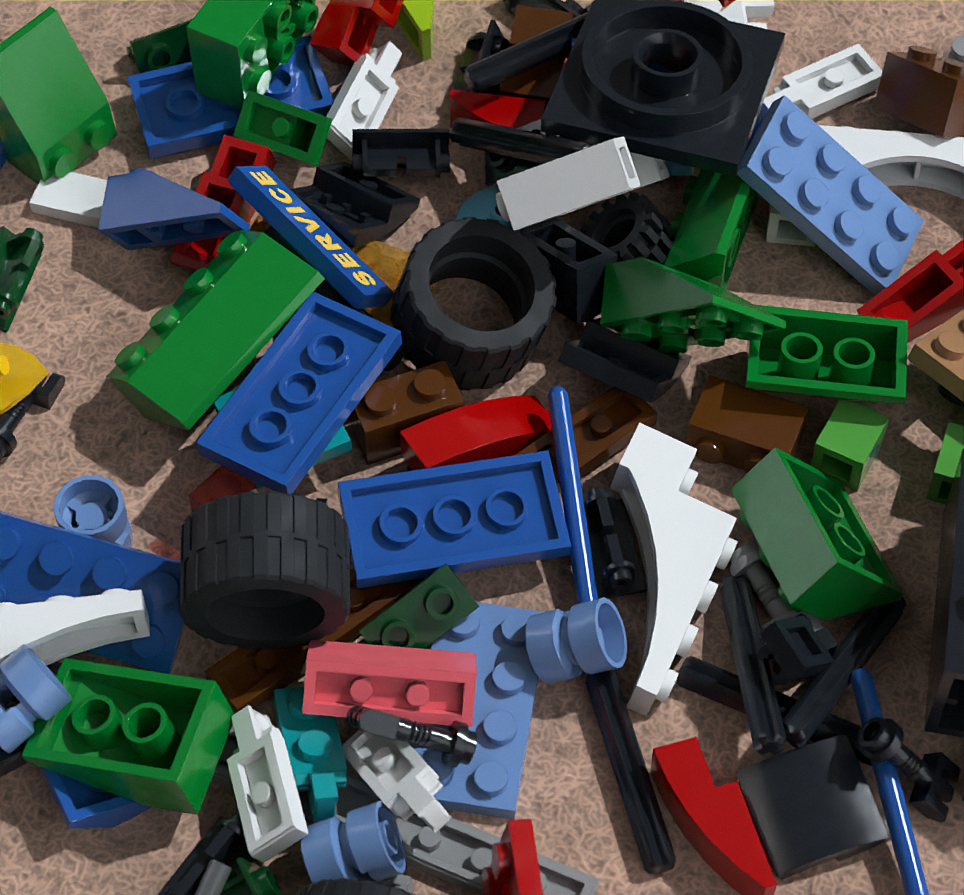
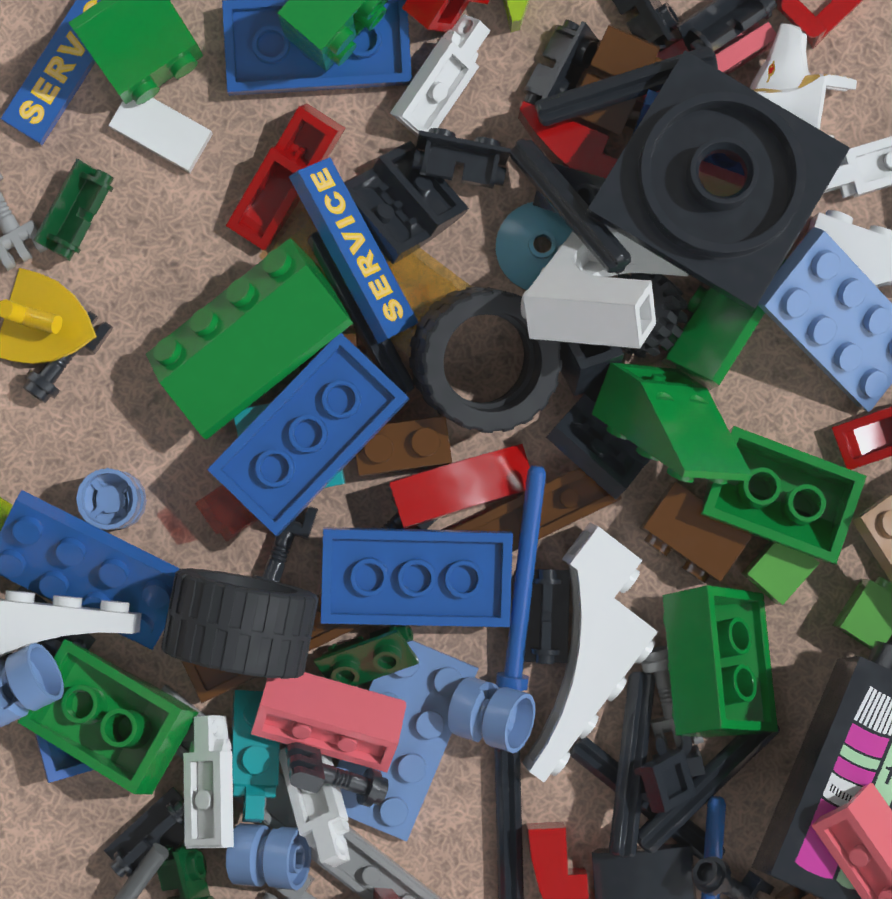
camera: 10 degrees right, 30 degrees up
(154, 211) = (227, 183): blue slope -> none
(283, 127) = (362, 117): green slope -> none

